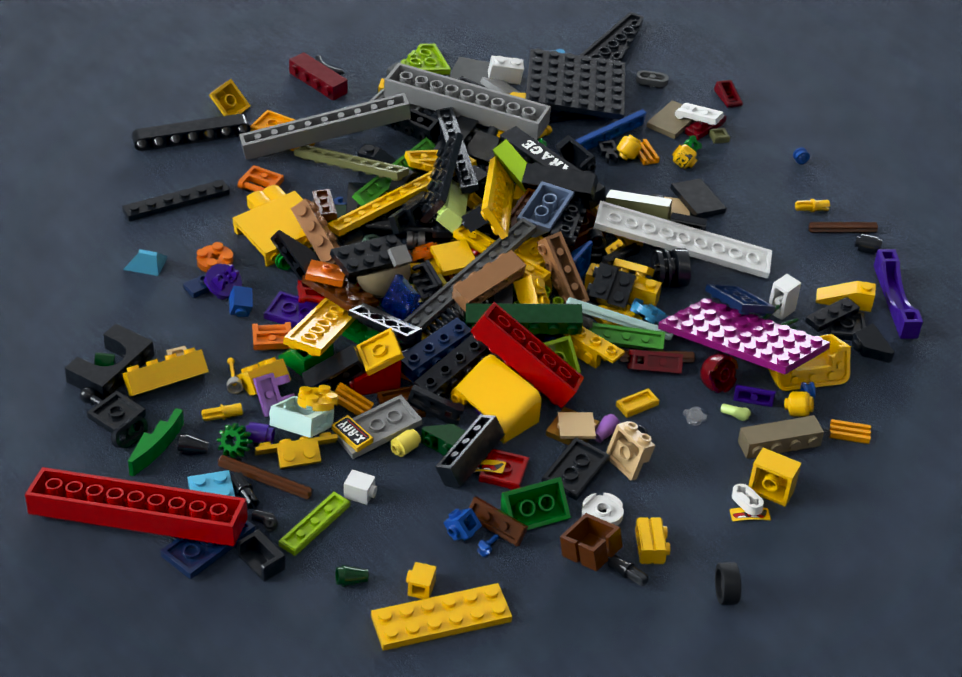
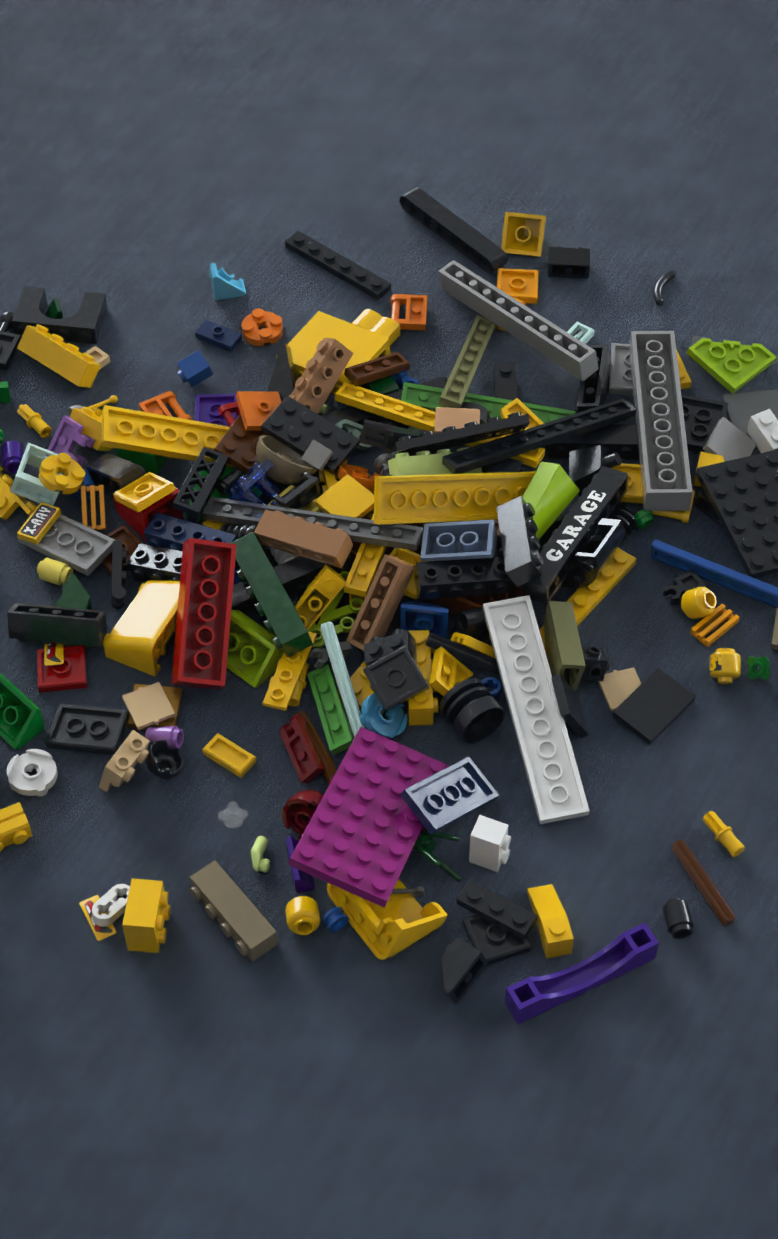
camera: 70 degrees right, 10 degrees up
(217, 285) = (231, 347): dark purple plate -> none
(272, 93) = (569, 262): none -> black brick
(318, 76) = (628, 285): dark red brick -> none
(415, 180) = (455, 417): none -> light nougat slope
(636, 284) = (396, 678): none -> black tile
(645, 259) = (495, 683): none -> blue bush
(850, 431) = (284, 965): light orange tile -> none

